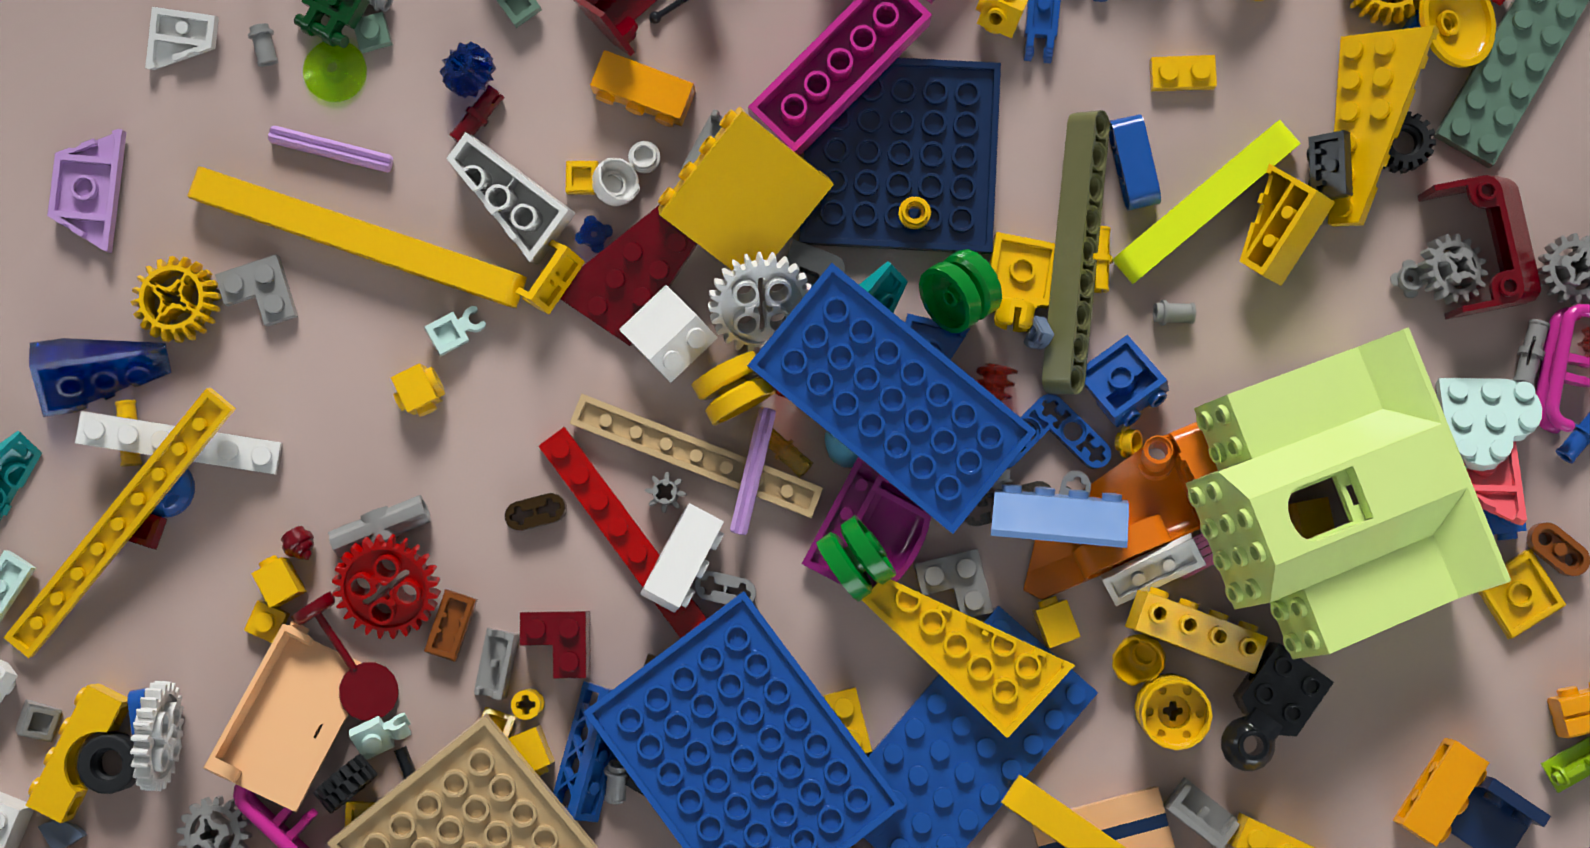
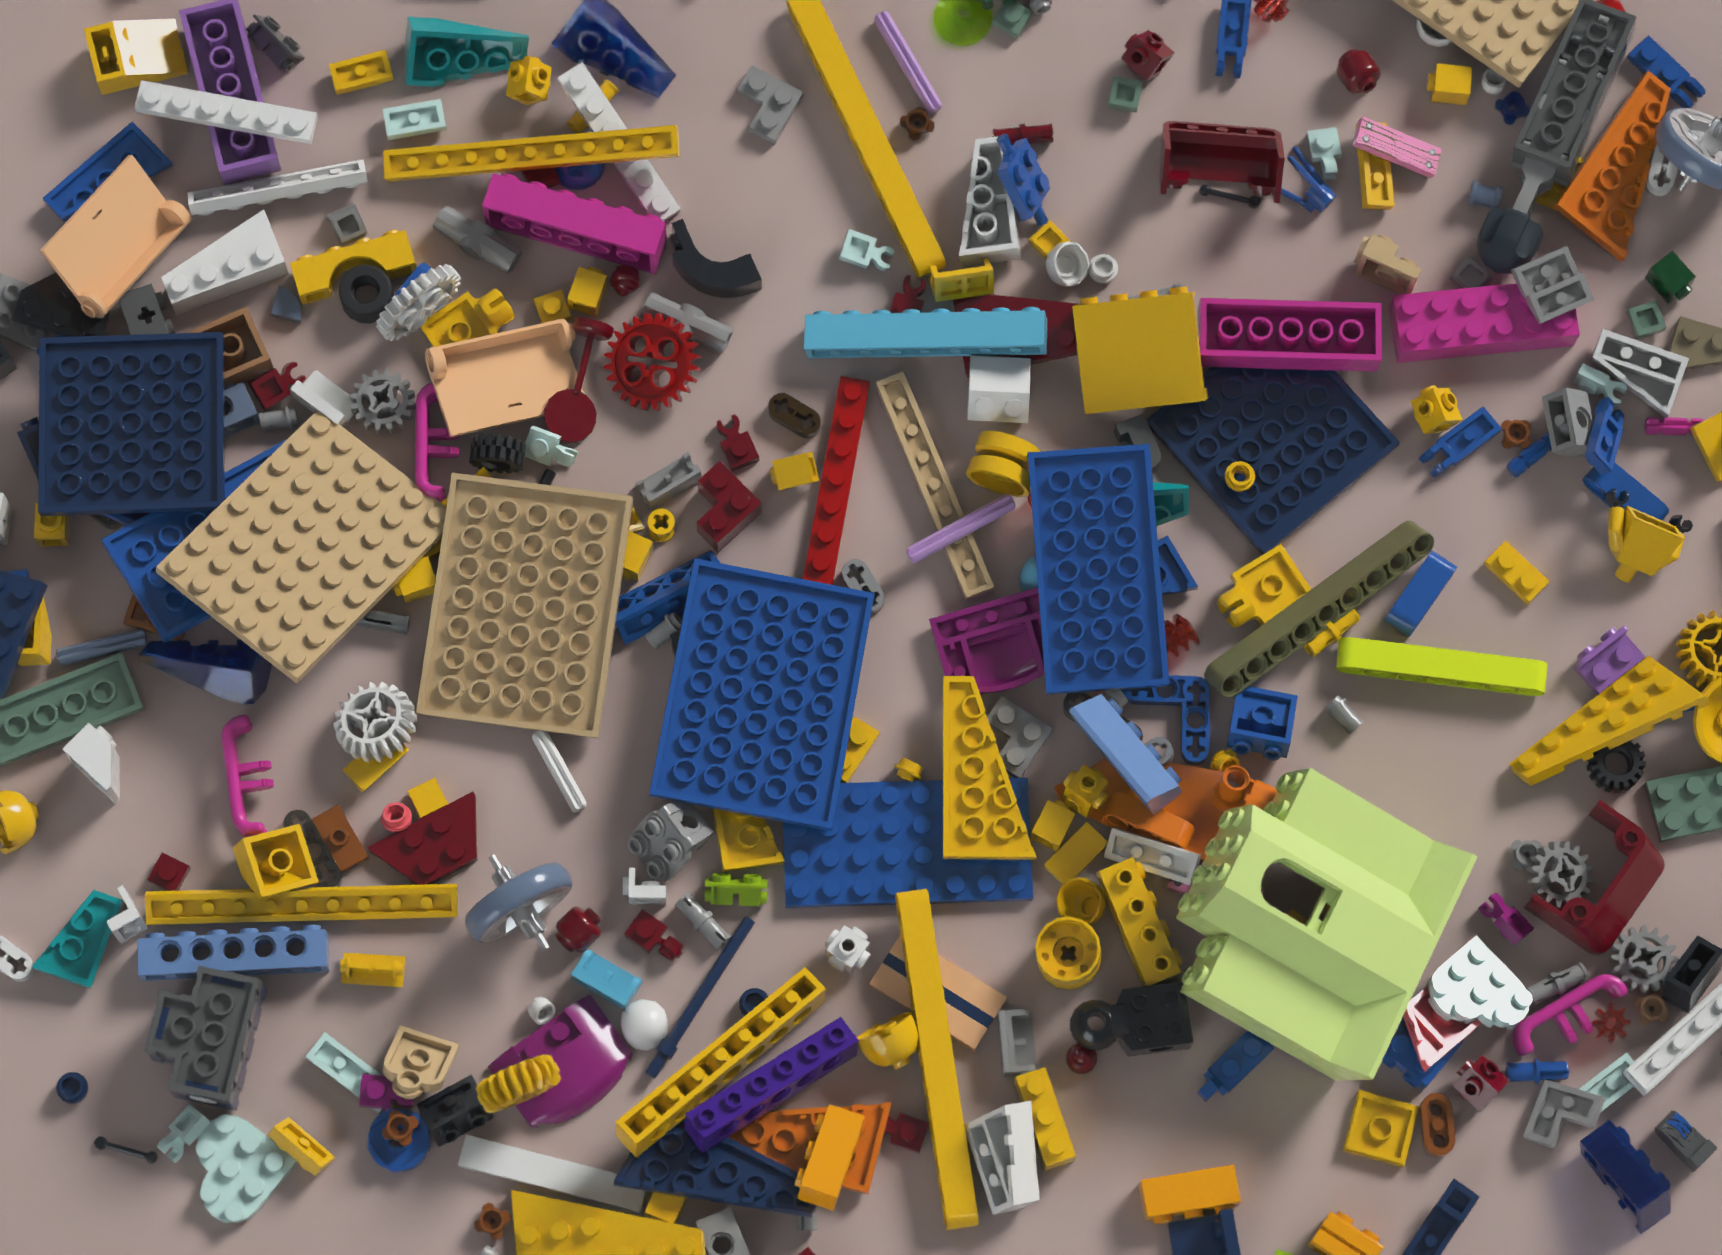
camera: 40 degrees right, 10 degrees down
(56, 465) = (528, 80): none -> yellow brick
(151, 630) = (477, 239): none -> light grey piece
(168, 310) = (721, 52): yellow gear -> none
(210, 542) = (575, 223): none -> dark pink brick
(211, 700) = (468, 318): none -> yellow plate
(369, 466) = (711, 277): none -> black arch
(383, 181) = (917, 115): none -> reddish brown plate
(418, 389) = (802, 264): yellow brick -> none
(450, 625) = (665, 428): dark orange plate -> none
(467, 69) = (1048, 100): clear blue gear -> none
(514, 151) = (1023, 179): none -> blue plate
(520, 581) = (738, 447): none -> dark red plate
(531, 340) = (909, 298): none -> dark red plate
(569, 348) = (926, 333): none -> medium azure brick
(583, 557) = (794, 471): none -> yellow brick
(591, 225) = (1021, 275): clear blue plate -> none
(642, 89) = (1147, 225): light orange brick -> none
(674, 492) = (890, 477): light grey gear -> none
(683, 559) = (857, 535): white brick -> none
(731, 305) = (1058, 412): white gear -> none
(789, 454) = (995, 544): clear yellow axle -> none
(852, 560) = (968, 642): green wheel -> none
(906, 693) = (908, 770): none -> yellow plate
(960, 291) = (1215, 551): green wheel -> none
(1039, 334) = (1238, 634): sand blue tile -> none
(1054, 585) = (1085, 790): none -> yellow brick
(1093, 624) = (1076, 854): none -> yellow tile
(1259, 779) = (1081, 1059): none -> dark red plate
(1284, 225) = (1473, 730): yellow wedge -> none
(1317, 70) = (1609, 660): none -> medium lavender bracket
(1331, 164) = (1546, 724): black bracket -> none
(1370, 669) = (1234, 1065): none -> blue hinge
(1452, 341) = (1508, 920): none -> magenta plate
(1559, 486) = (1479, 1082): none -> dark red brick

